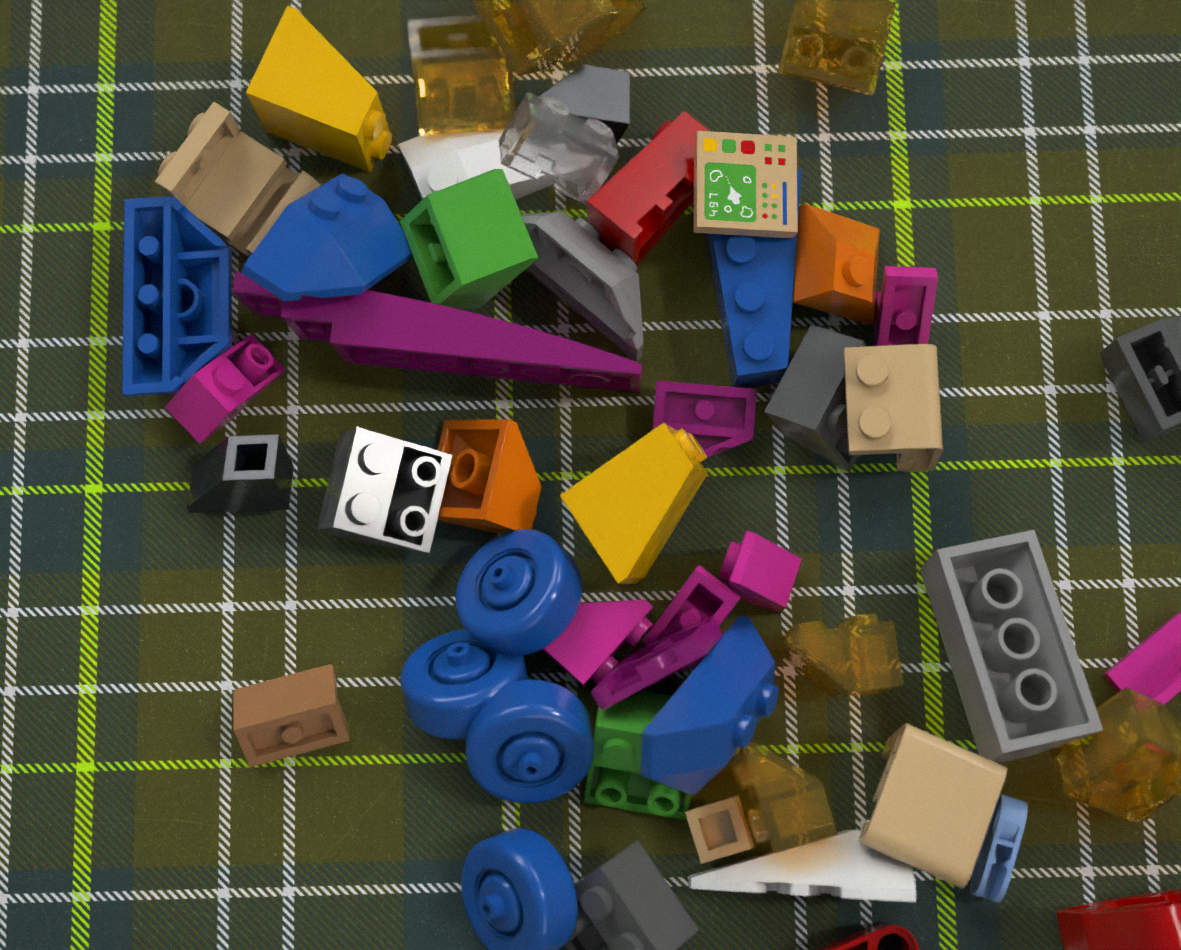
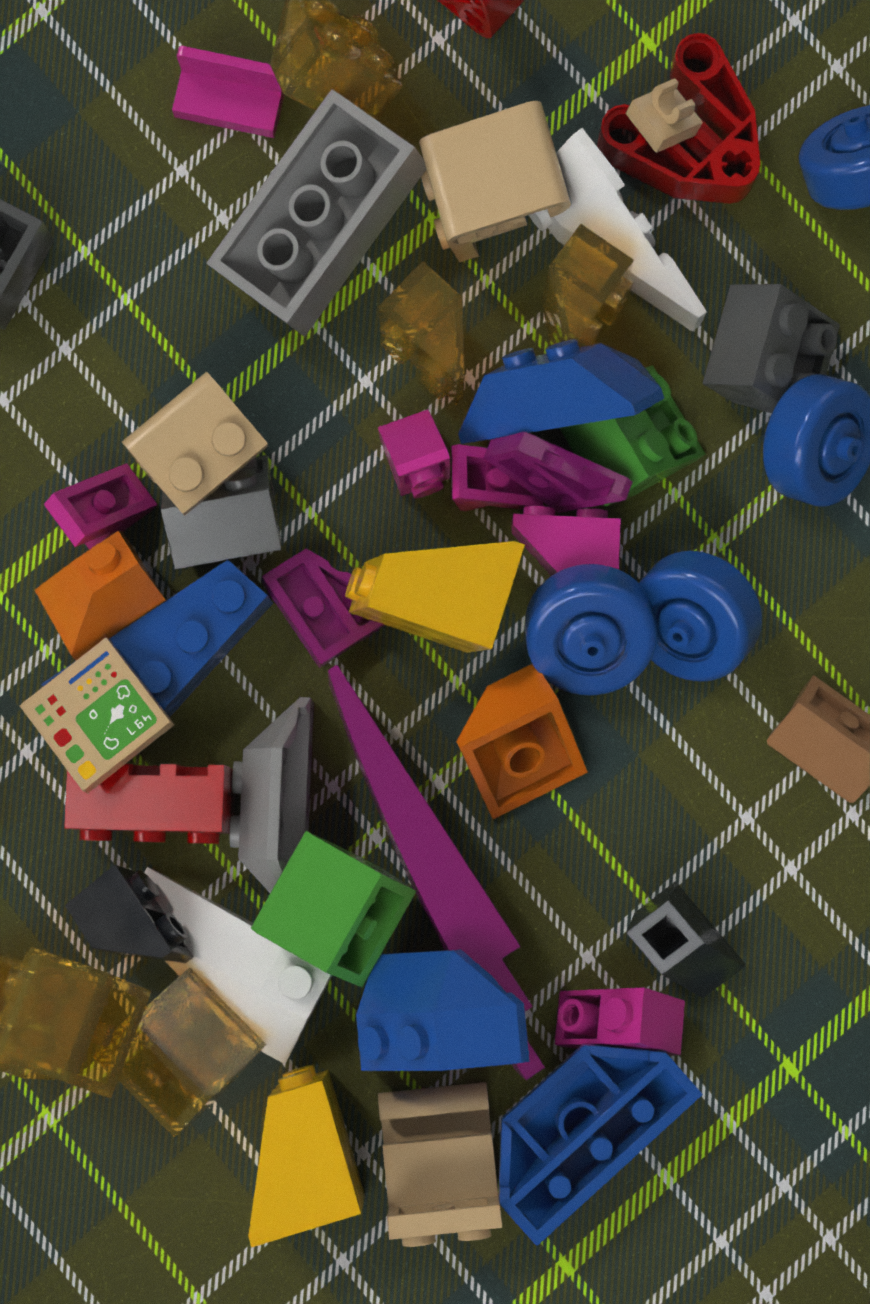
camera: 130 degrees left, 5 degrees up
(384, 491) = (597, 812): slope -> none
(530, 742) = (700, 520): blue wheel -> none
(560, 145) = (187, 903): clear brick -> none
(719, 829) = (642, 327): tan tile -> none
(999, 849) = (477, 104): light blue piece -> none

